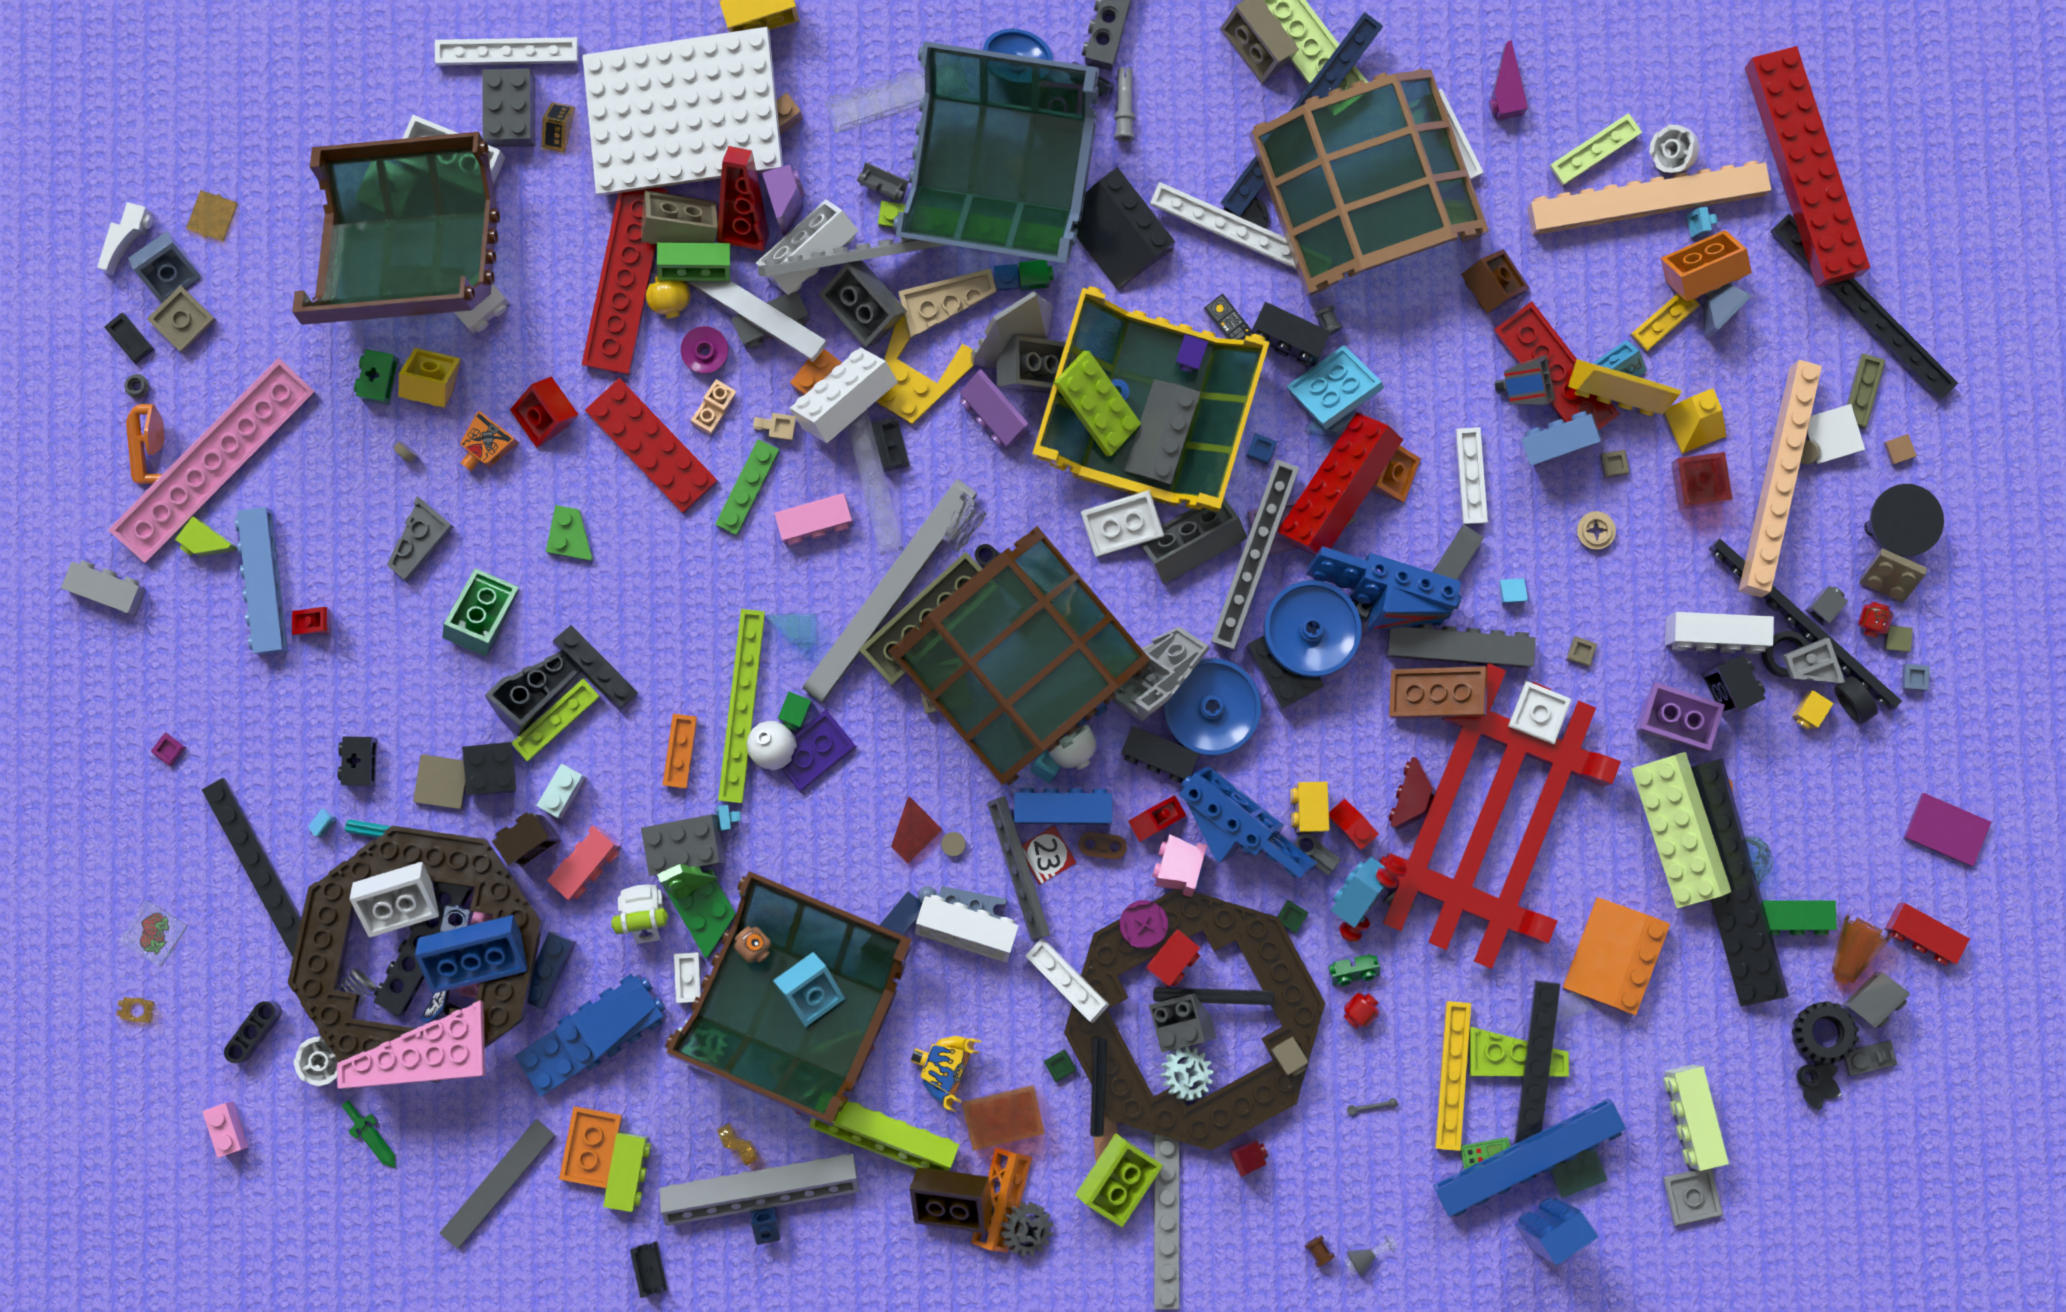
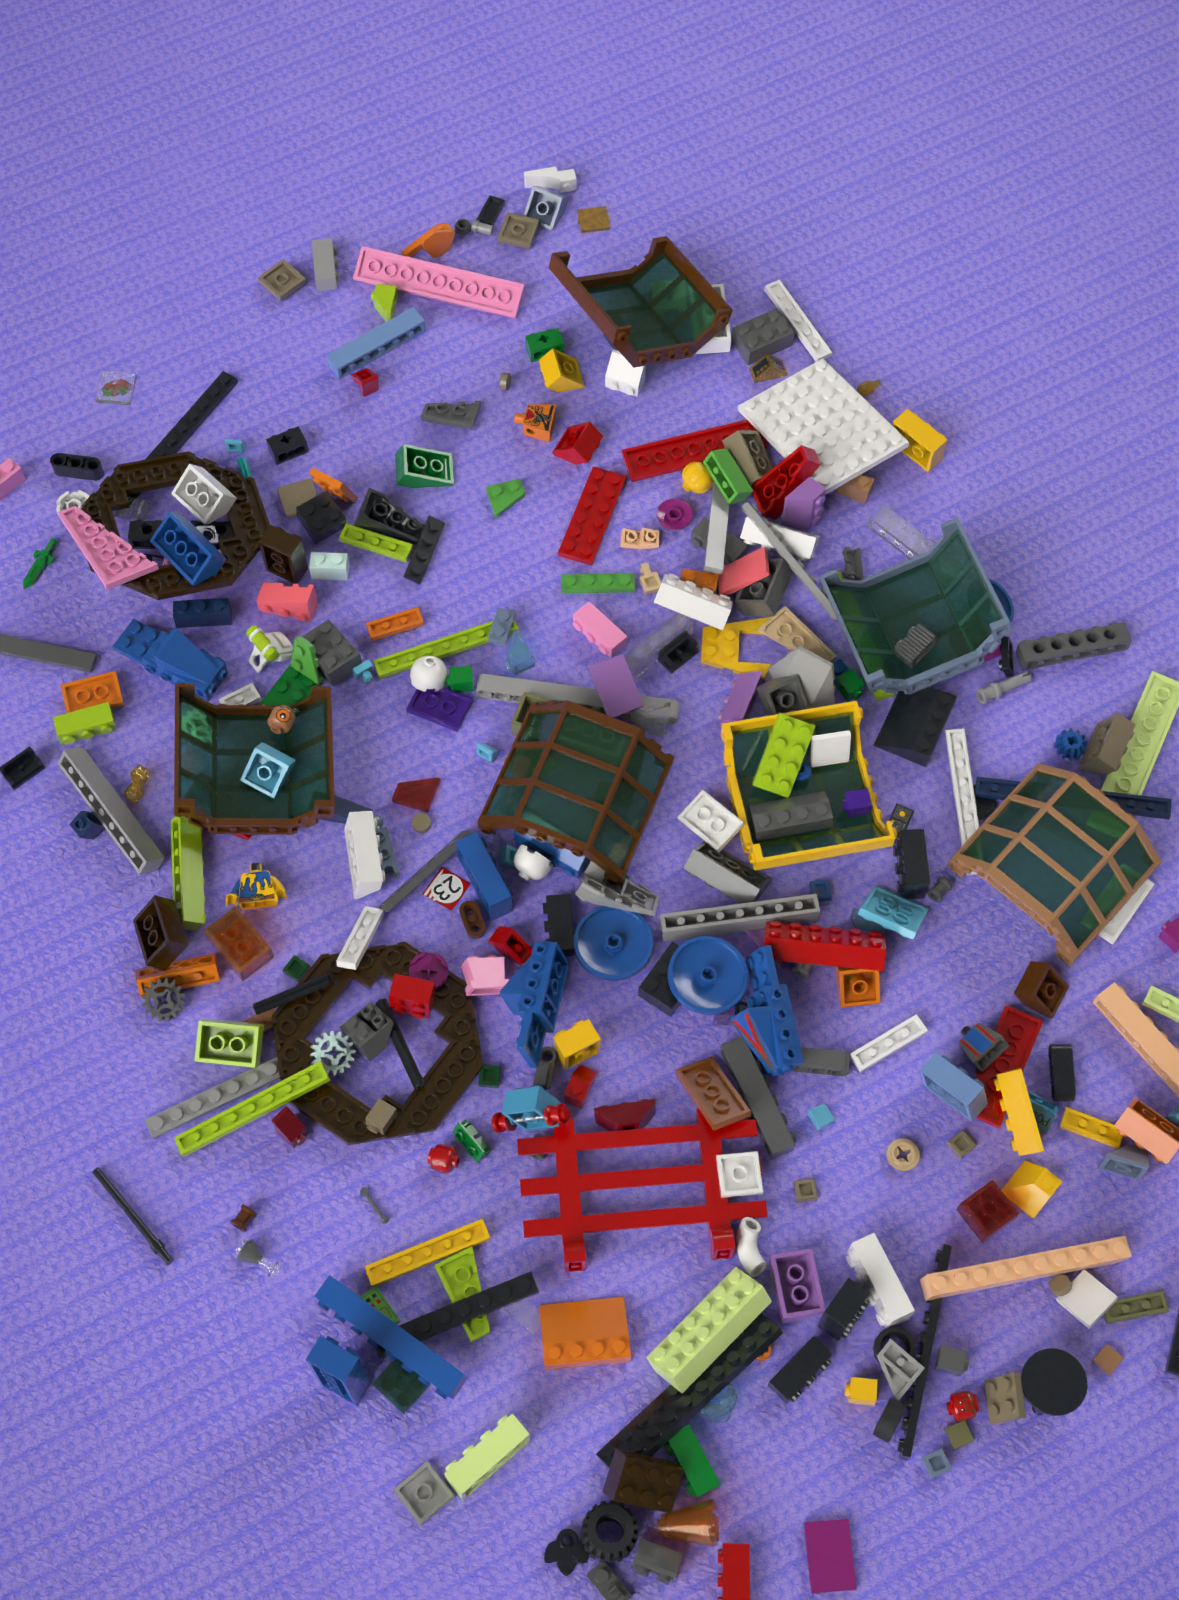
camera: 60 degrees right, 20 degrees down
(98, 652) = (282, 280): none -> dark tan plate
(125, 1012) = (58, 395): clear yellow piece -> none
(152, 362) = (482, 228): none -> light grey pin
(168, 749) = (240, 343): magenta tile -> none
(457, 736) = (333, 486): none -> orange plate
(647, 23) = (868, 387): none -> clear yellow cylinder
(753, 629) = (501, 626): none -> sand blue plate
(833, 313) = (744, 572): none -> coral tile
(902, 725) = (487, 752): none -> medium azure slope
(907, 542) = (615, 686): none -> medium lavender tile
(1035, 177) = (915, 645): none -> dark grey brick
(1113, 345) = (830, 748): none -> white tile
(1208, 1188) = (252, 1109): none -> lime plate
(1235, 66) = (1077, 746): none -> blue gear
(1594, 315) = (1061, 1072): none -> black beam
(1613, 744) = (747, 1247): none -> white cylinder
(1762, 759) = (800, 1370): none -> black brick
(1800, 976) = (643, 1481): none -> dark brown brick

